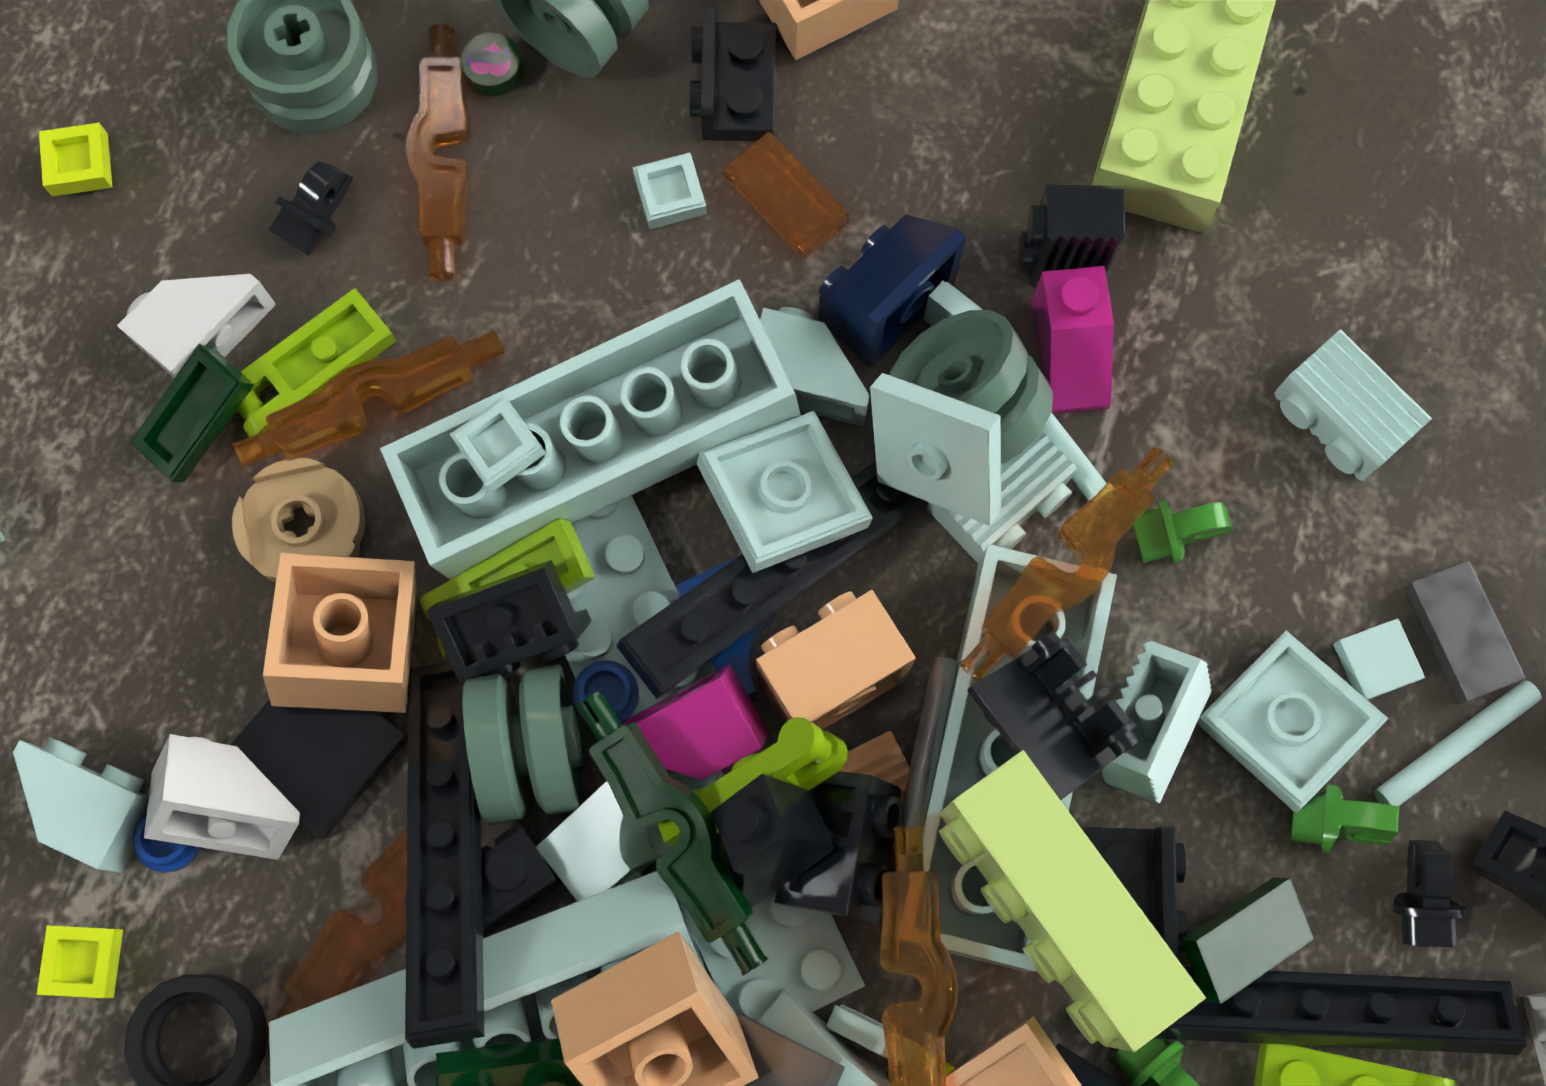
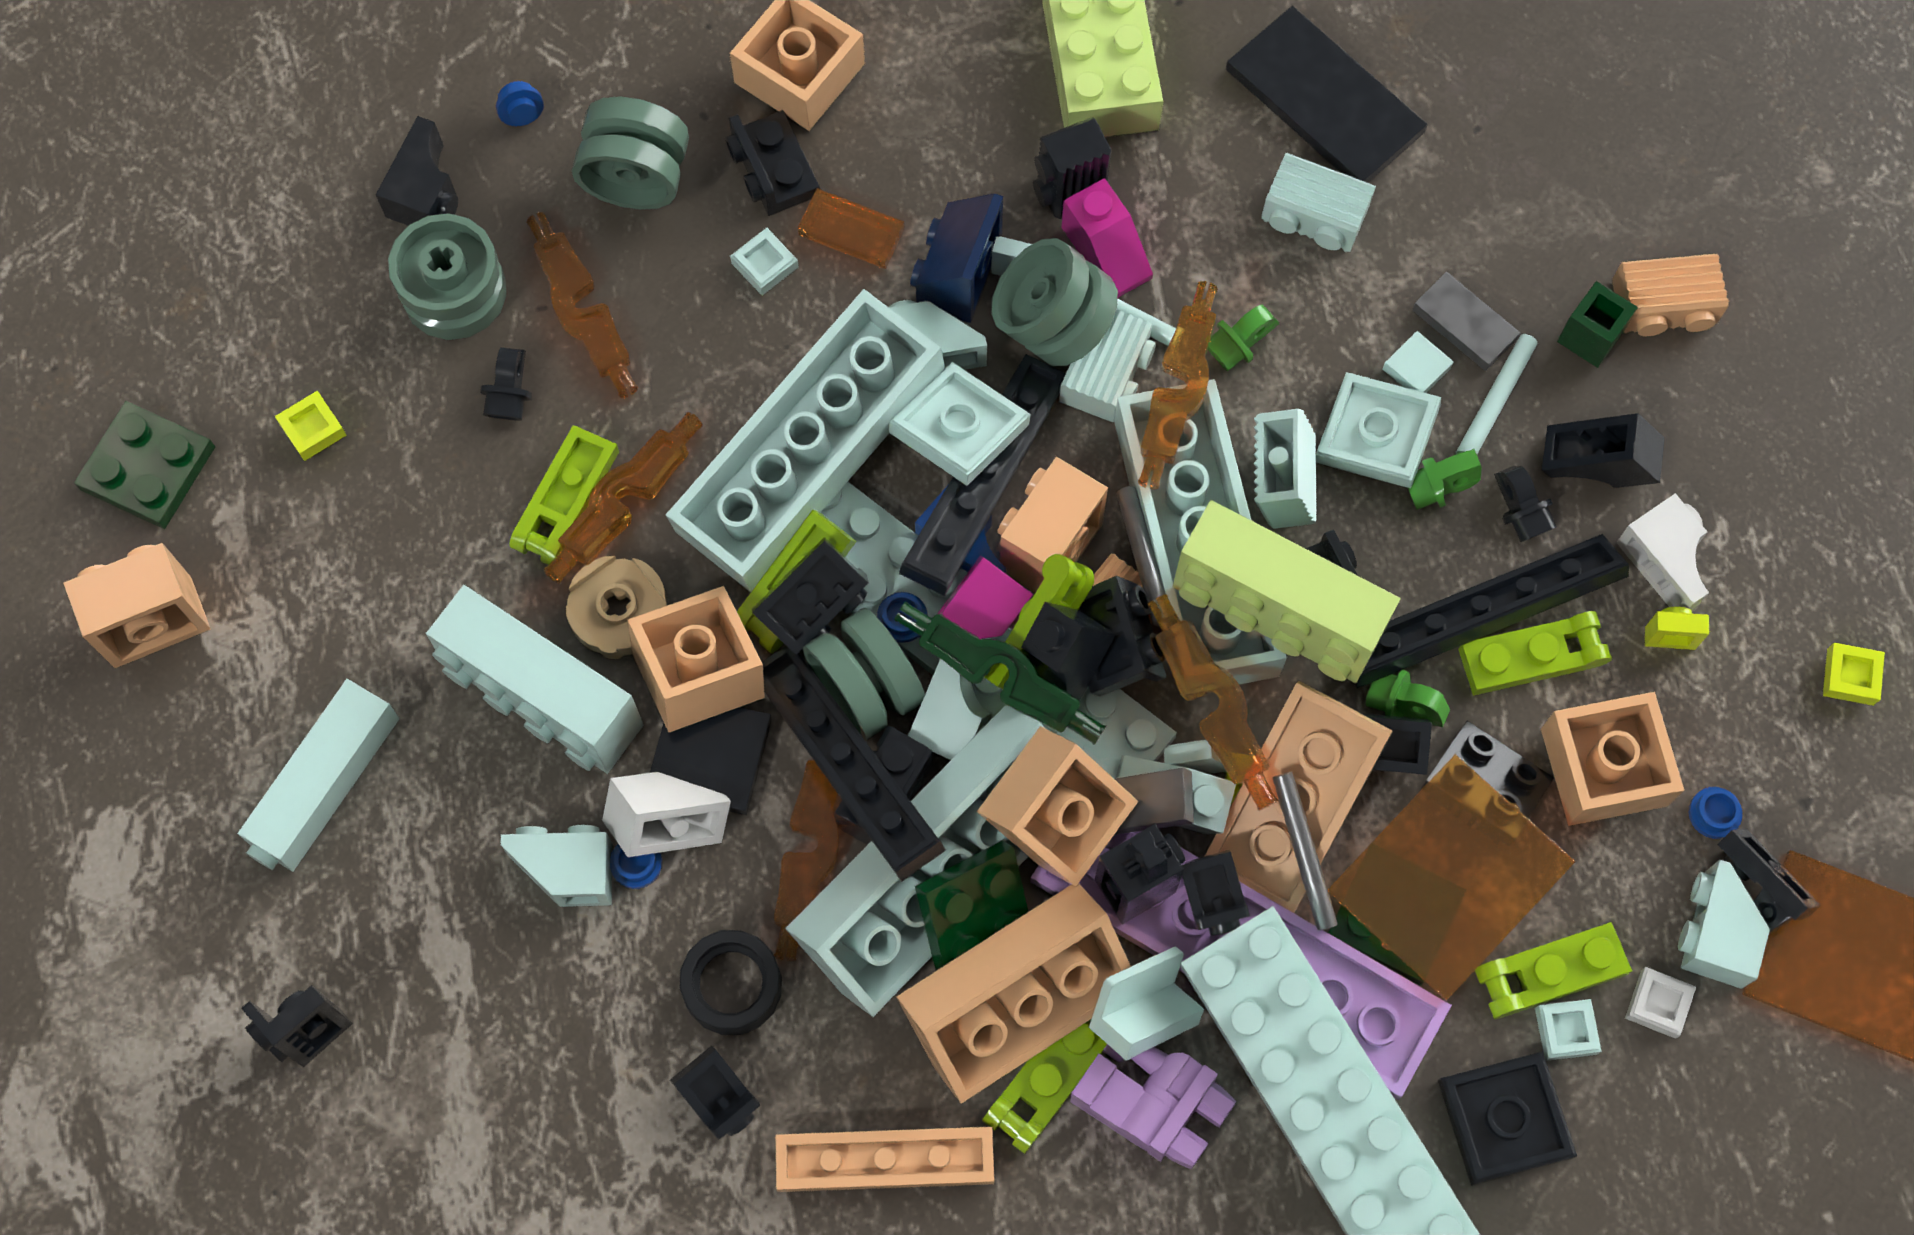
camera: 25 degrees left, 5 degrees down
(80, 962) = (618, 970): neon yellow plate -> none
(147, 573) = (535, 680): none -> light aqua brick
(191, 413) = (501, 558): dark green tile -> none
(194, 312) = (465, 501): white slope -> none
(492, 64) = (586, 226): tile -> none
(497, 444) = (751, 472): light aqua tile -> none
(937, 448) = (1053, 346): light aqua plate -> none
(1050, 718) = (1199, 477): black hinge -> none
(1247, 939) = (1420, 580): tile -> none
(1423, 280) = (1326, 96): none -> black tile

